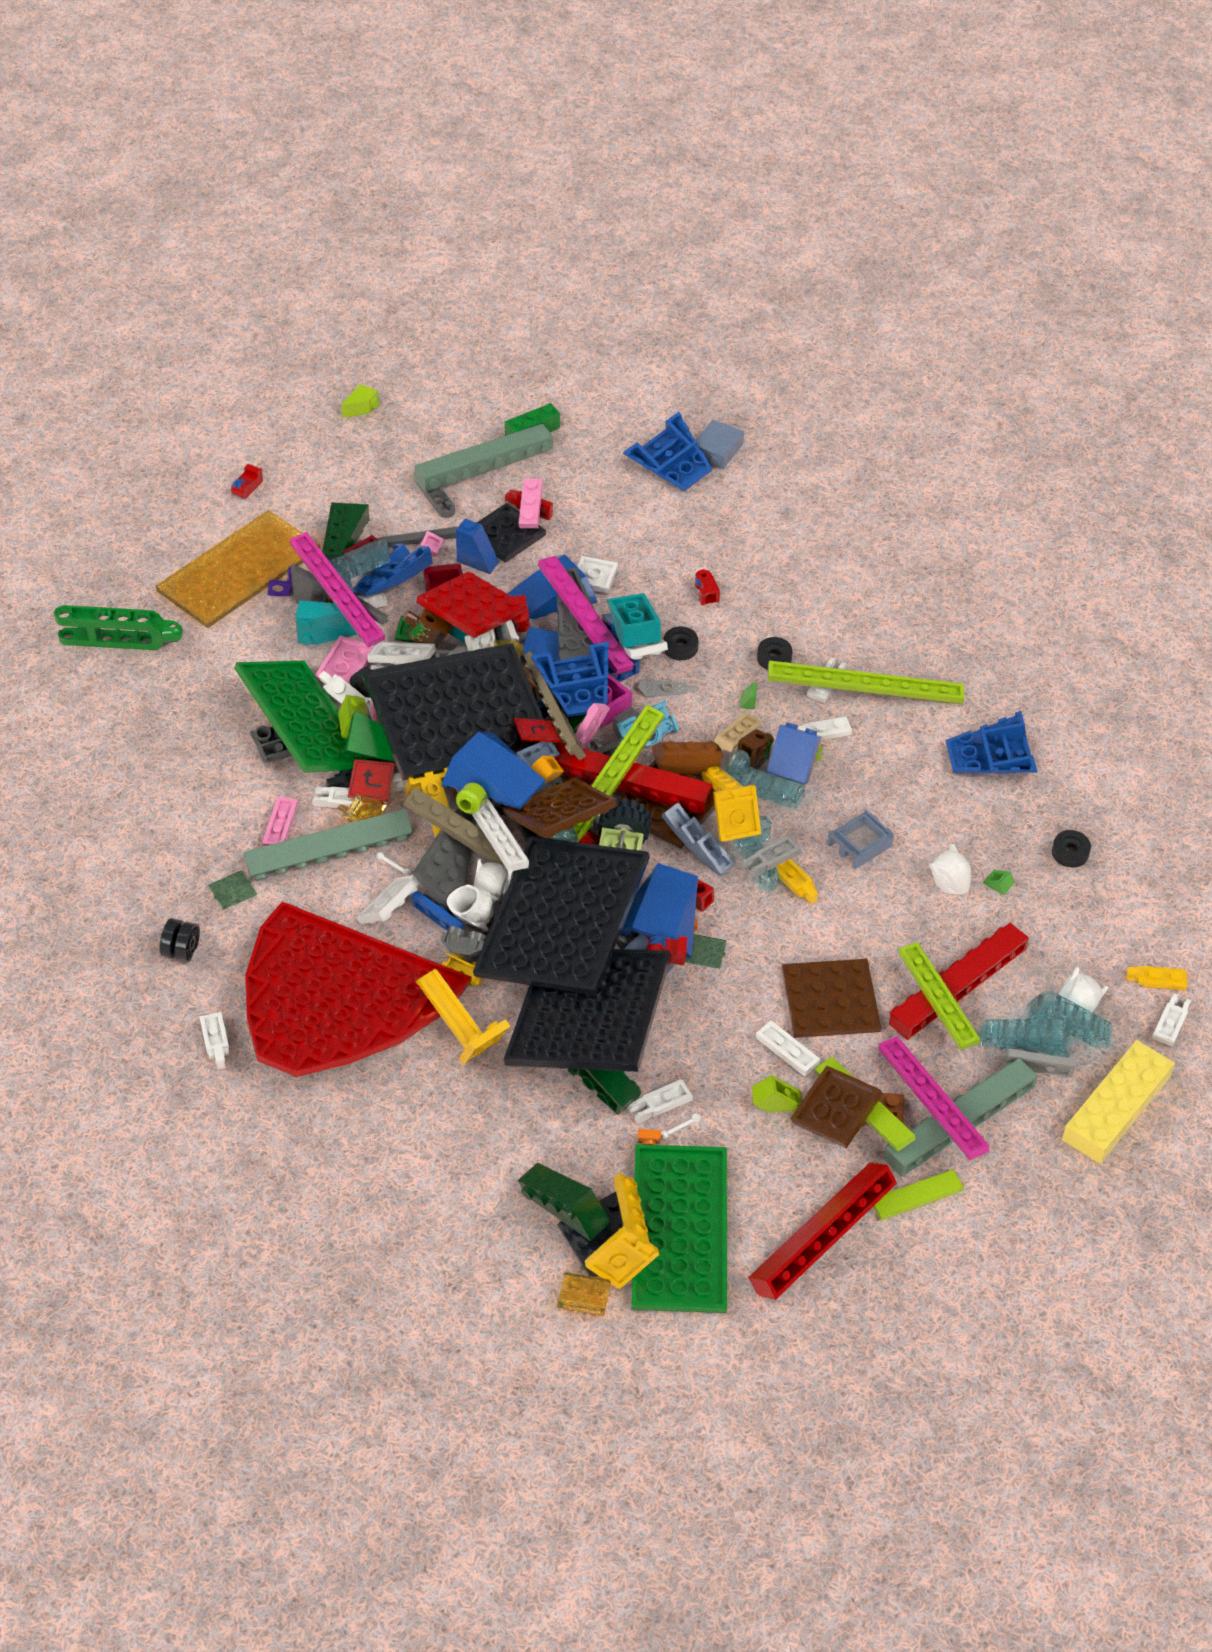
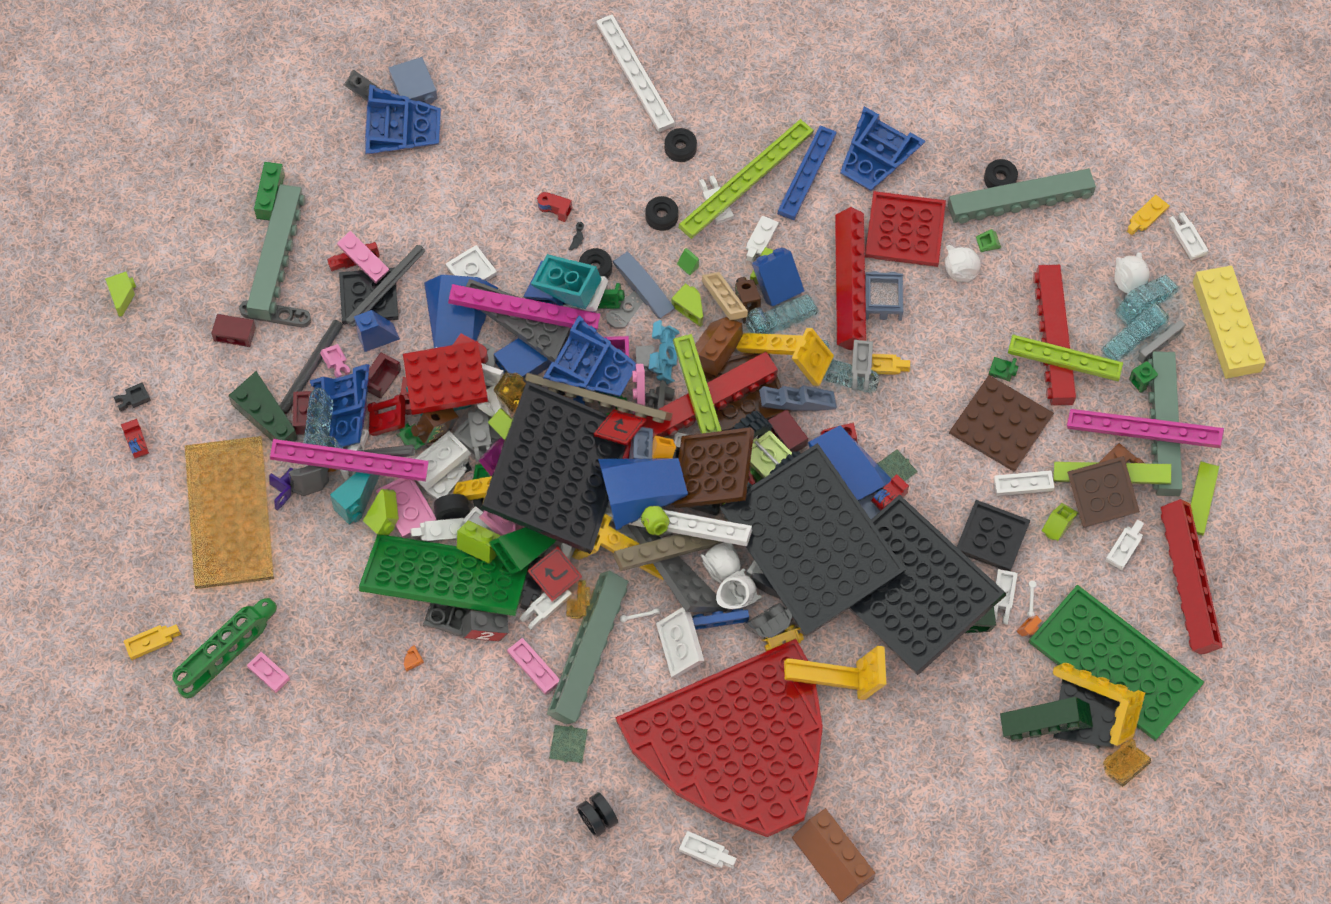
camera: 50 degrees left, 15 degrees up
(88, 591) = (150, 640): none -> yellow hinge
(123, 671) = (268, 672): none -> bright pink plate
(216, 749) = (412, 659): none -> orange tile
(282, 461) = (134, 395): none -> black plate
(282, 767) = (485, 626): none -> dark grey brick
(291, 1129) = (833, 855): none -> dark orange slope
(322, 647) = (383, 513): none -> lime slope
(393, 477) = (233, 330): none -> dark red panel
(406, 602) = (388, 420): none -> red plate
(519, 532) = (387, 283): none -> dark grey axle
(660, 849) = (788, 431): none -> dark red panel
(661, 669) = (612, 298): none -> green bracket
(680, 406) = (359, 84): none -> dark grey hips
(695, 681) = (643, 284): none -> sand blue slope
(696, 620) = (577, 239): none -> black piece
(711, 719) = (688, 303): none -> lime slope
(712, 1057) = (993, 535): none -> black plate
(806, 1162) = (1125, 546): none -> white hinge
(850, 636) = (680, 135): none -> black tyre
(853, 803) = (850, 277): none -> red brick
(883, 562) = (635, 73): none -> white plate
(885, 966) = (1003, 369): none -> green bracket
(920, 720) = (807, 172): none -> blue plate
(943, 815) = (905, 229): none -> red plate
(988, 1065) = (1142, 376): none -> green bracket
(1069, 874) = (1021, 196): none -> sand green brick

